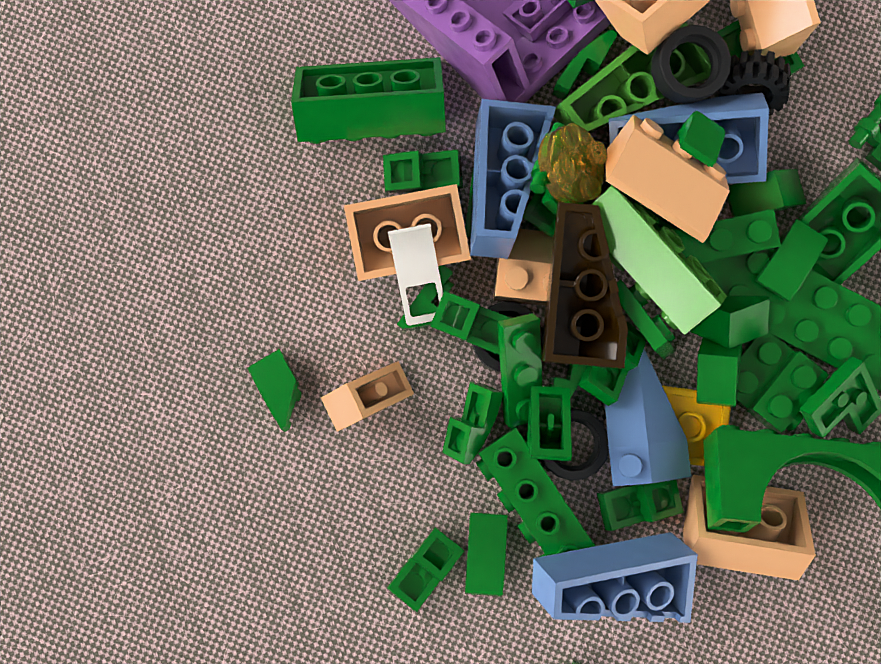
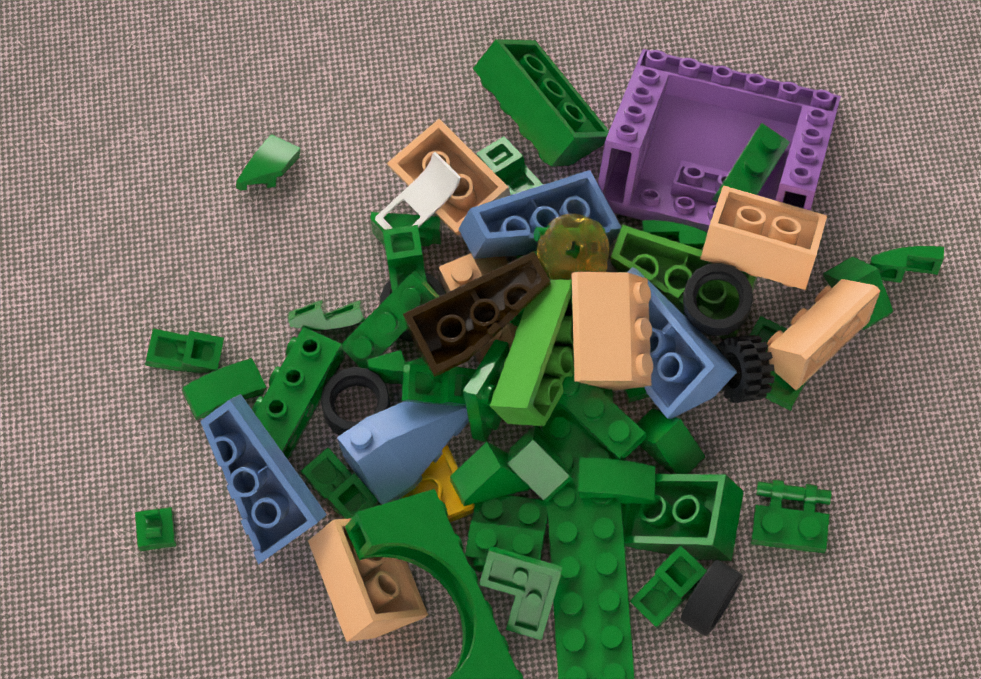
camera: 60 degrees right, 20 degrees down
(367, 395) = (301, 228): light nougat slope -> none
(549, 423) = (358, 357): green slope -> none
(701, 138) = (659, 334): green slope -> none

